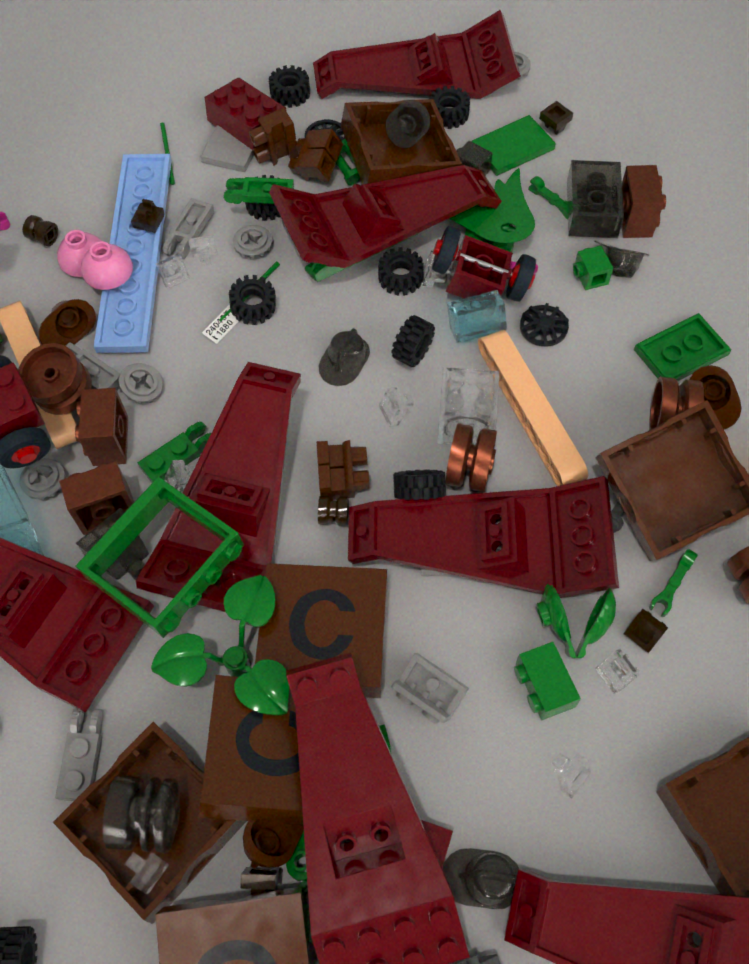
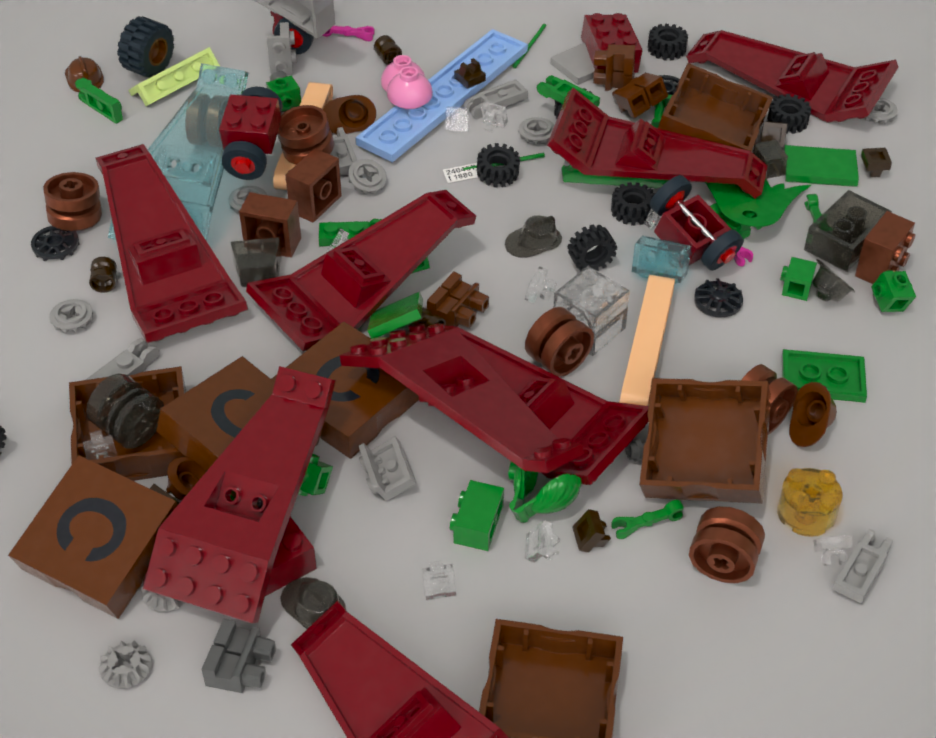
camera: 35 degrees right, 15 degrees down
(131, 525) = (269, 247): green window -> none
(258, 688) = (259, 379): green plant -> none
(311, 525) = (395, 315): none -> green tile
(407, 123) = (730, 103): clear smoke piece -> none
(419, 484) = (503, 337): black tyre -> none
(425, 566) = (462, 385): none -> dark red wing
(457, 132) = (774, 131): none -> dark brown tile
(673, 237) = (893, 291): none -> green brick

